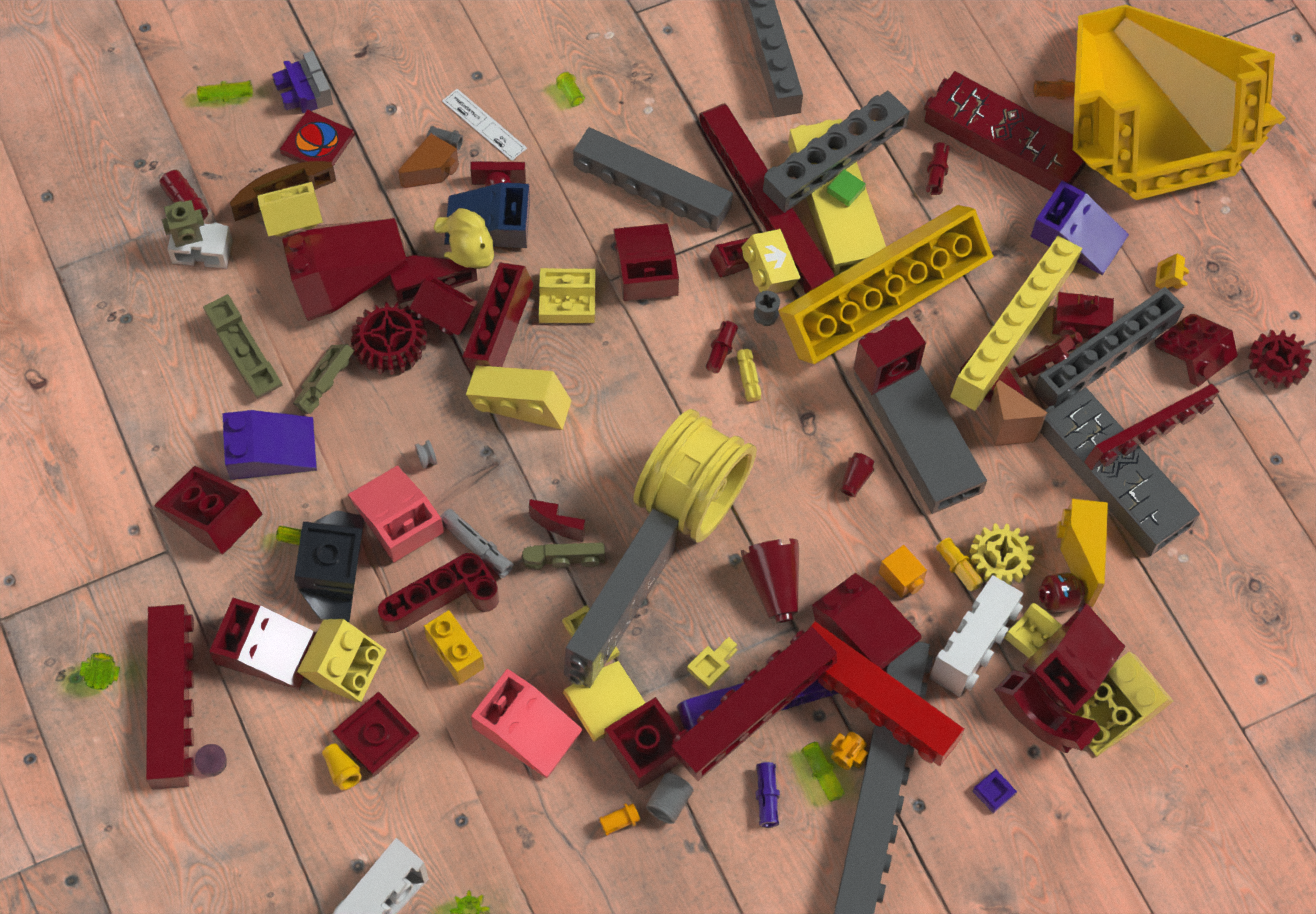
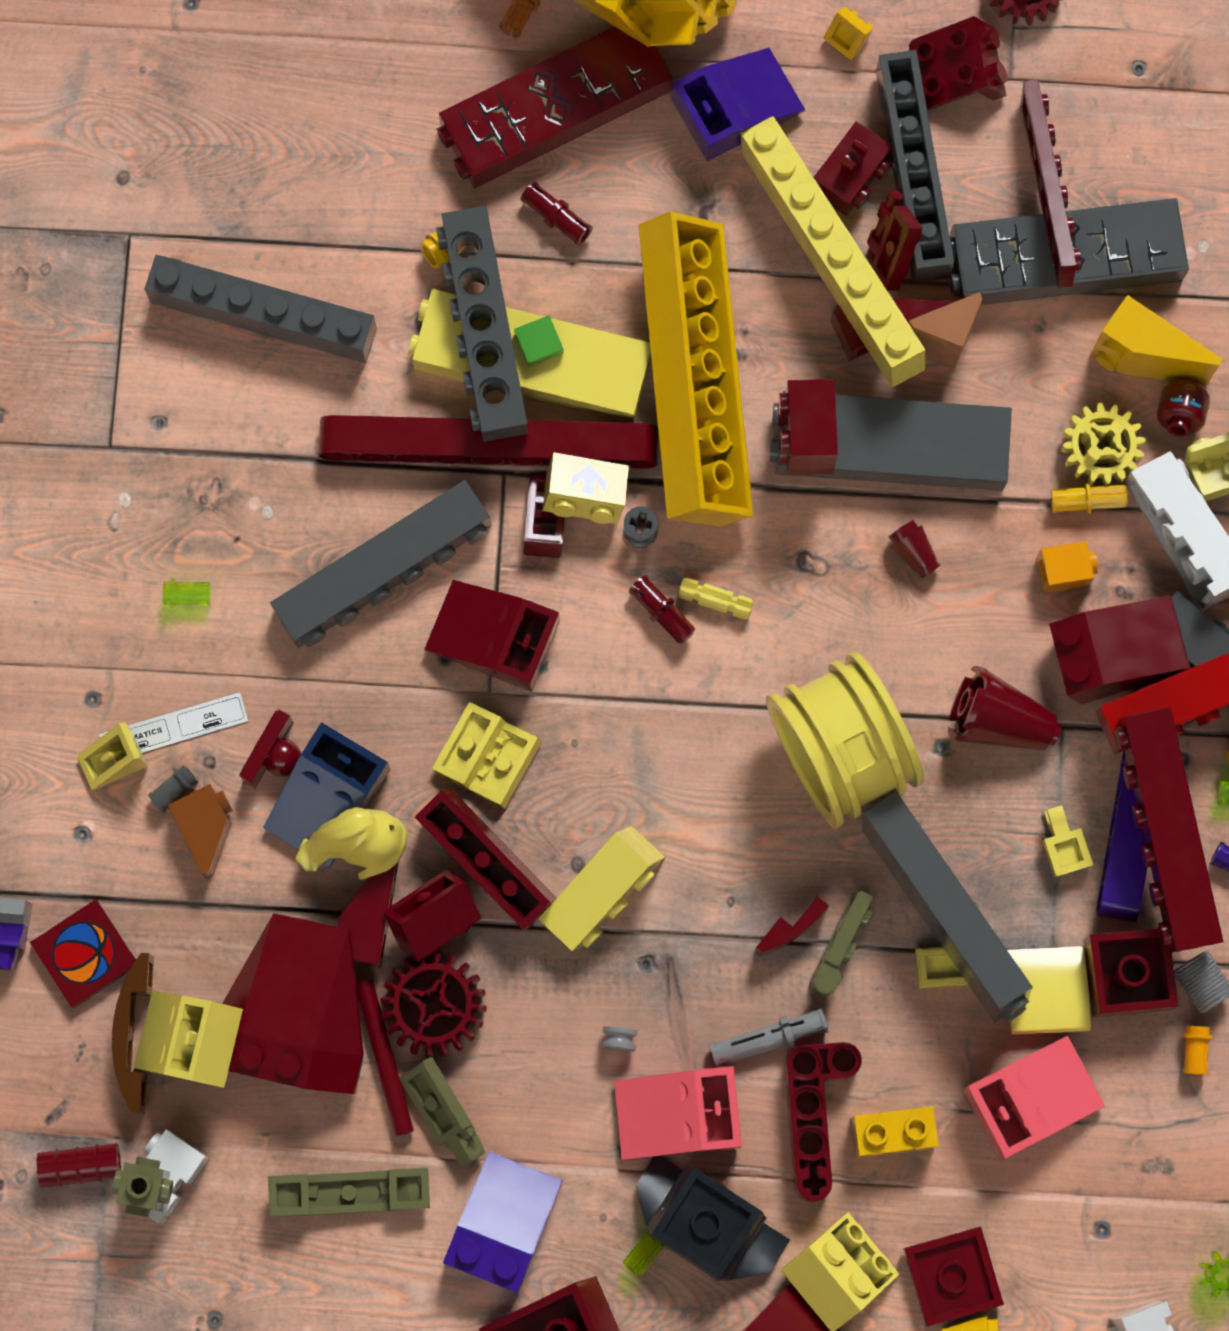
camera: 60 degrees left, 15 degrees up
(338, 331) = (384, 1058): none -> dark red piece
(447, 98) = (112, 757): none -> light yellow slope

